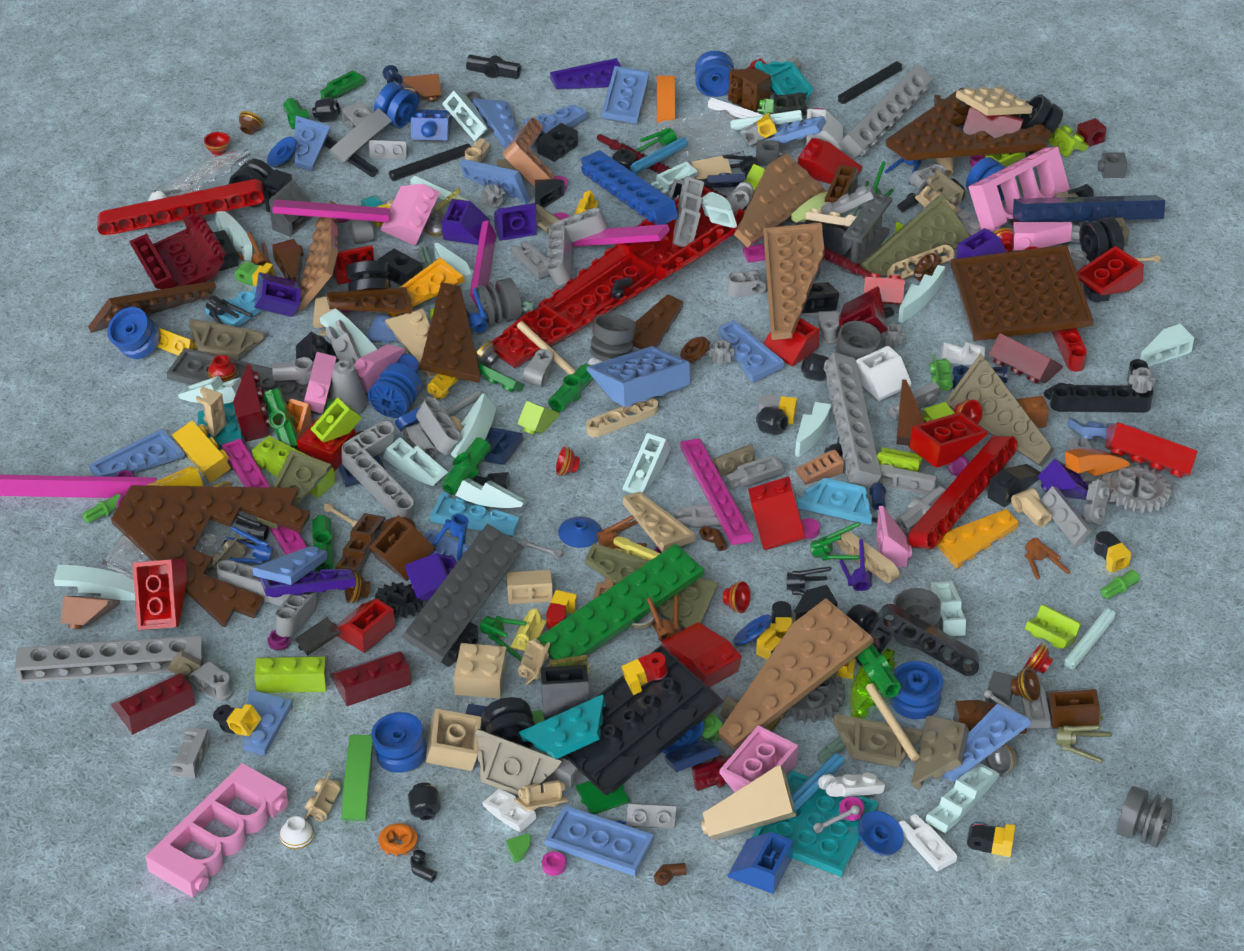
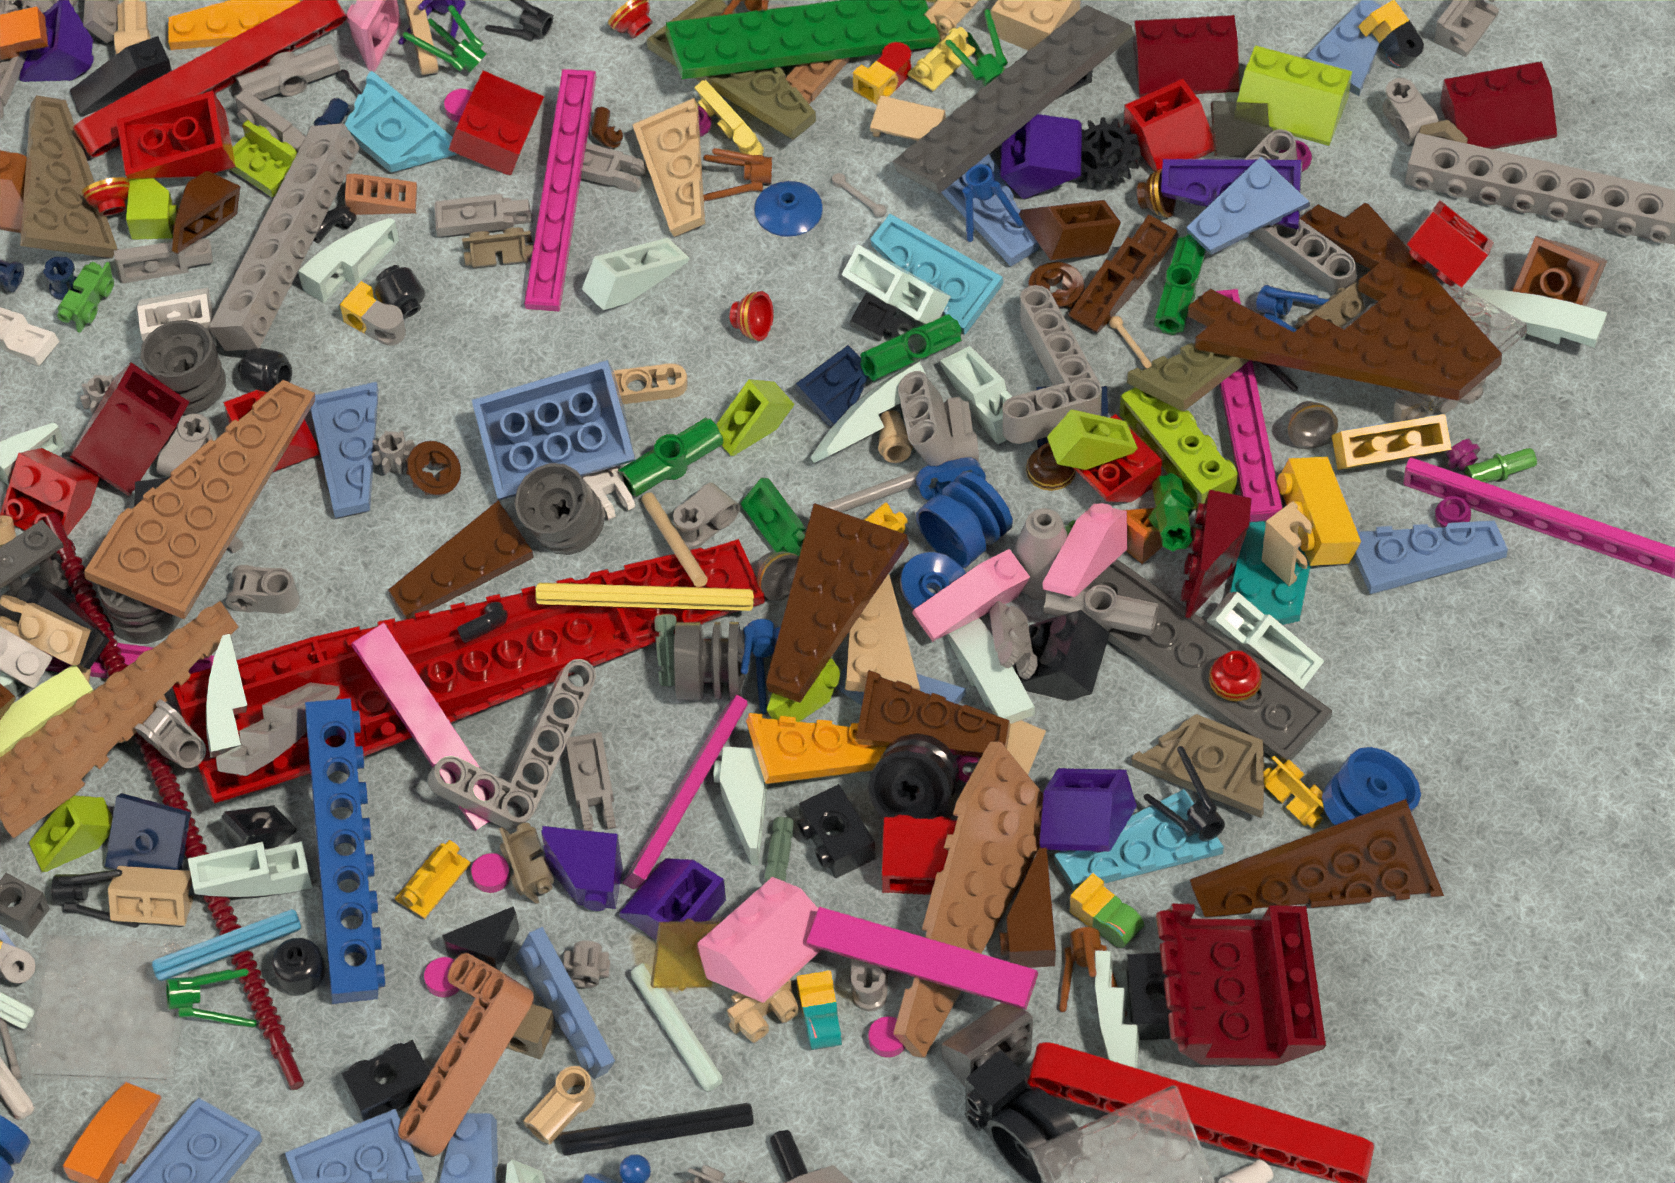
camera: 155 degrees left, 15 degrees up
(547, 316) = (644, 596): none -> light yellow axle

